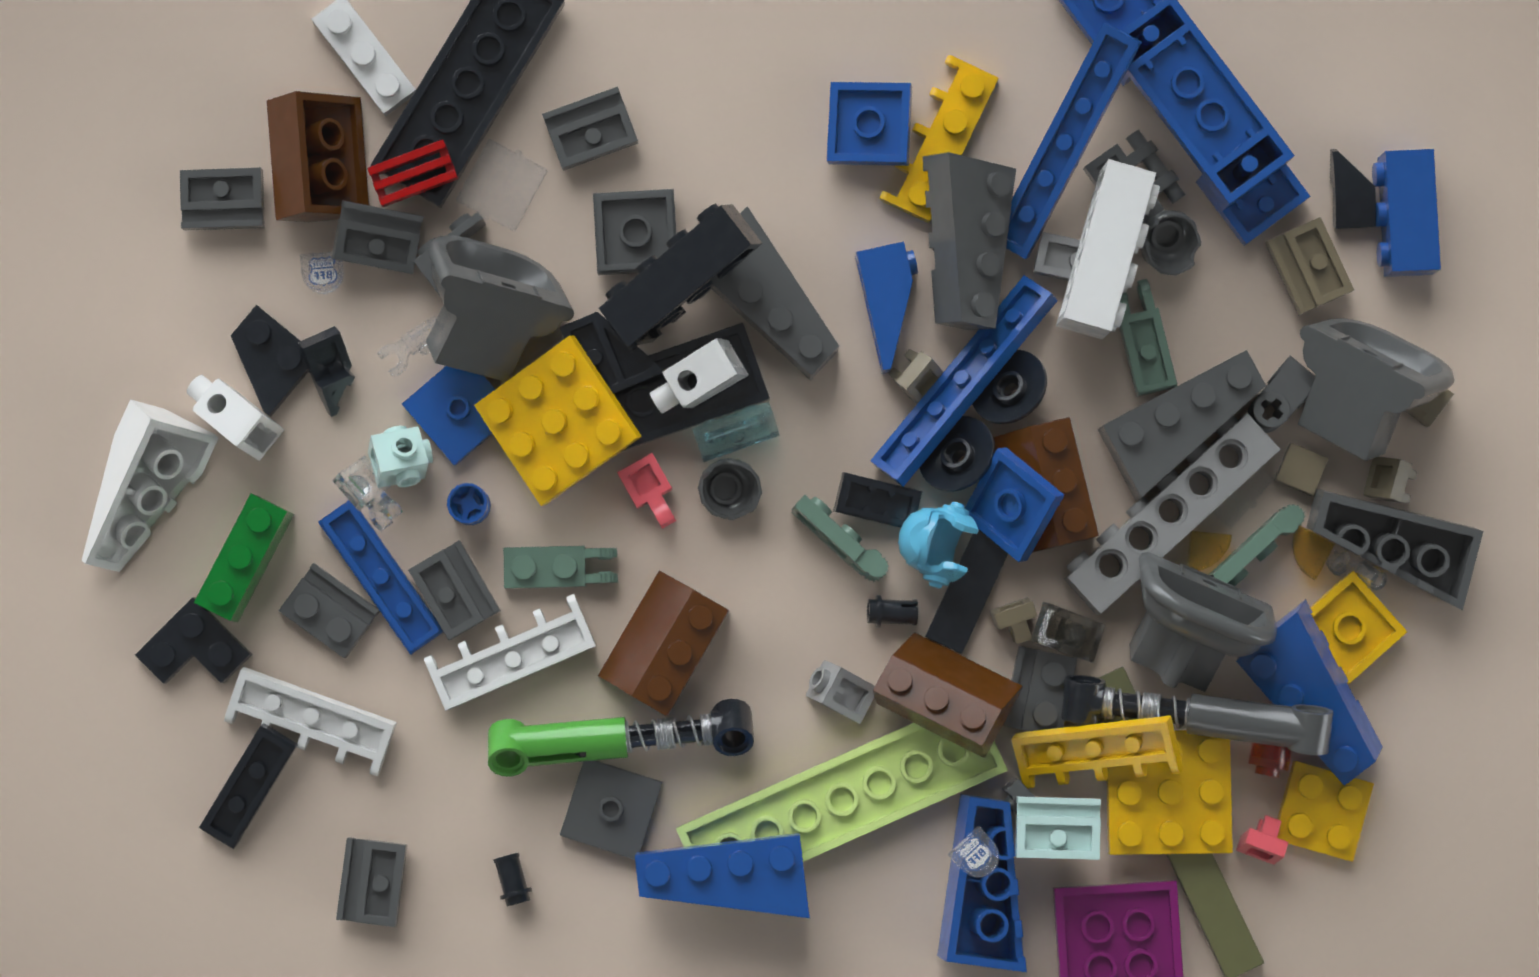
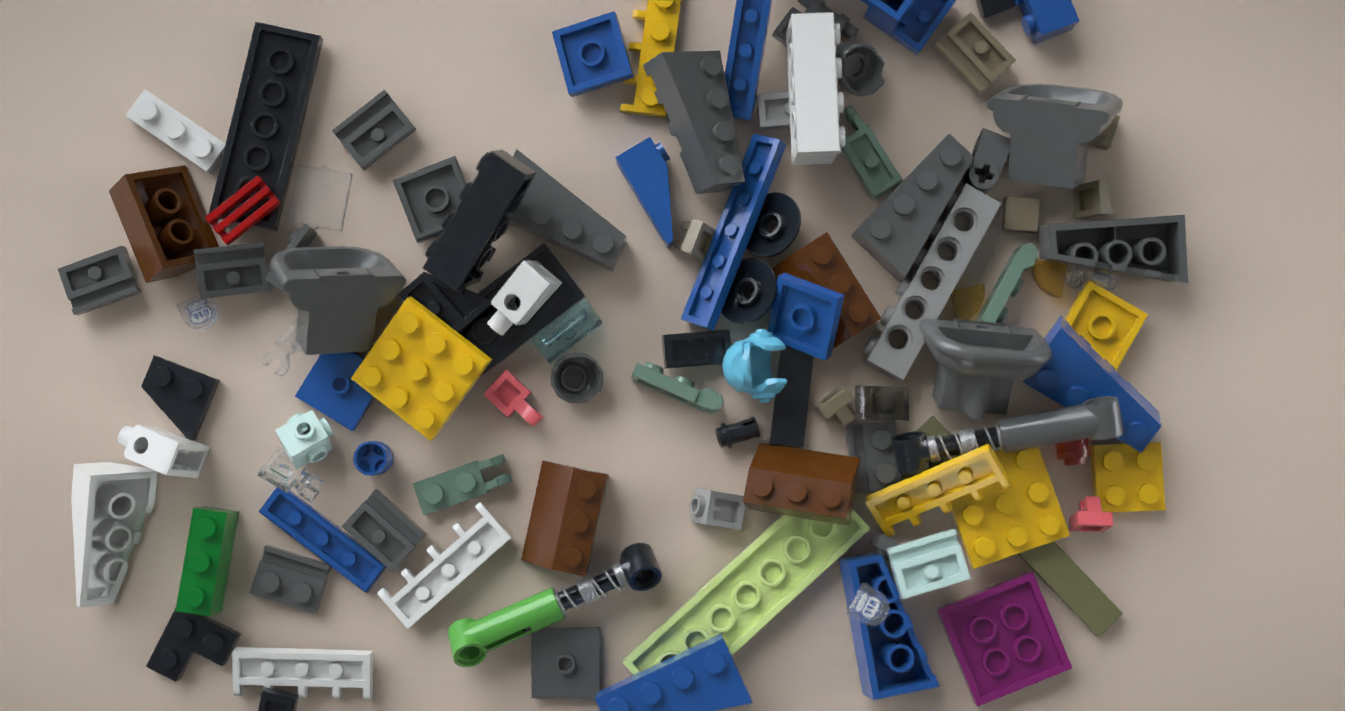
camera: 15 degrees left, 0 degrees up
(328, 366) = (226, 385): black slope -> none

